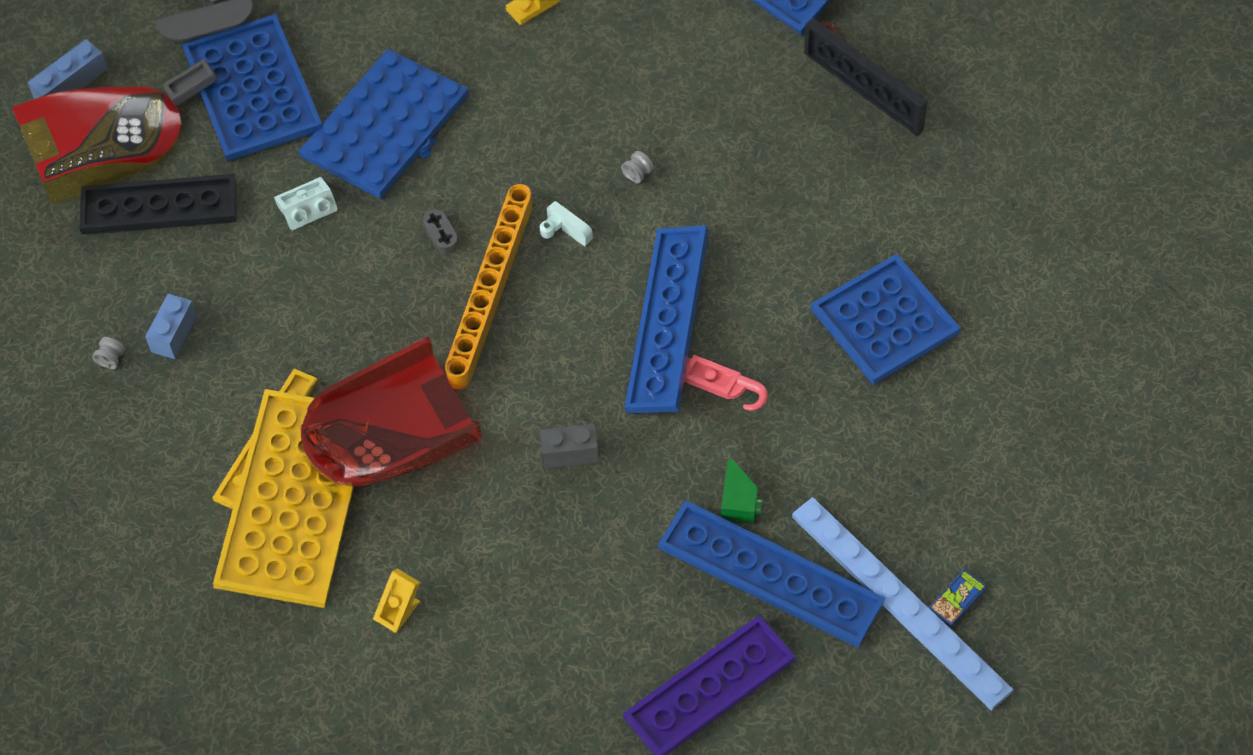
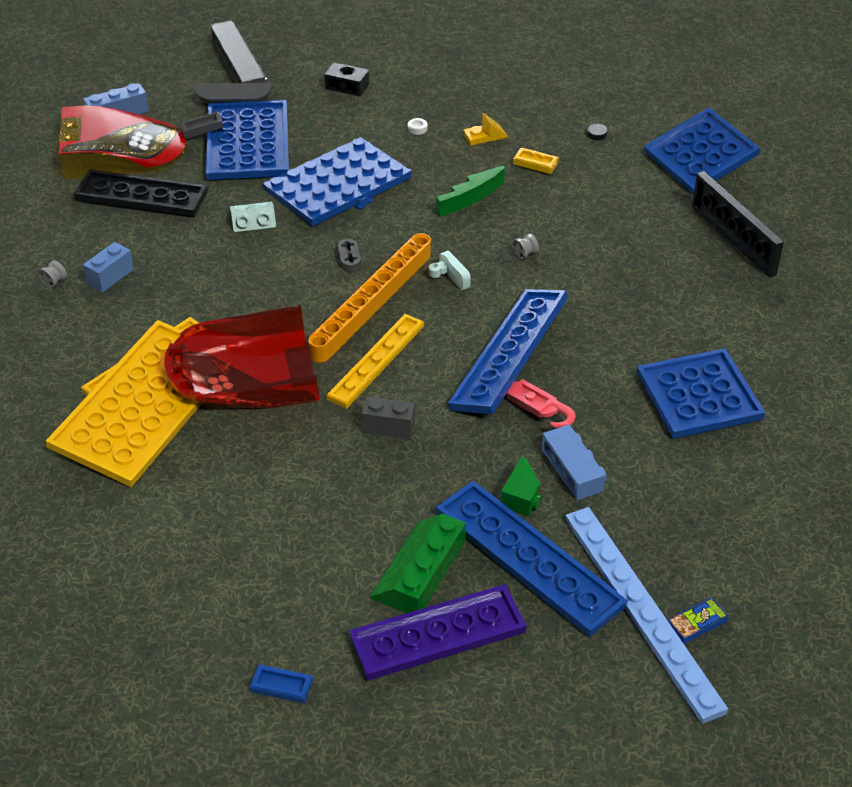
camera: 15 degrees right, 15 degrees down
(397, 600) = (191, 494): yellow slope -> none
(448, 12) = (417, 126): none -> white tile
(524, 370) = (375, 361): none -> yellow tile
(551, 96) = (474, 189): none -> green slope
(606, 33) = (535, 160): none -> yellow plate
(664, 614) = (421, 563): none -> green slope
(781, 446) = (573, 462): none -> medium blue brick

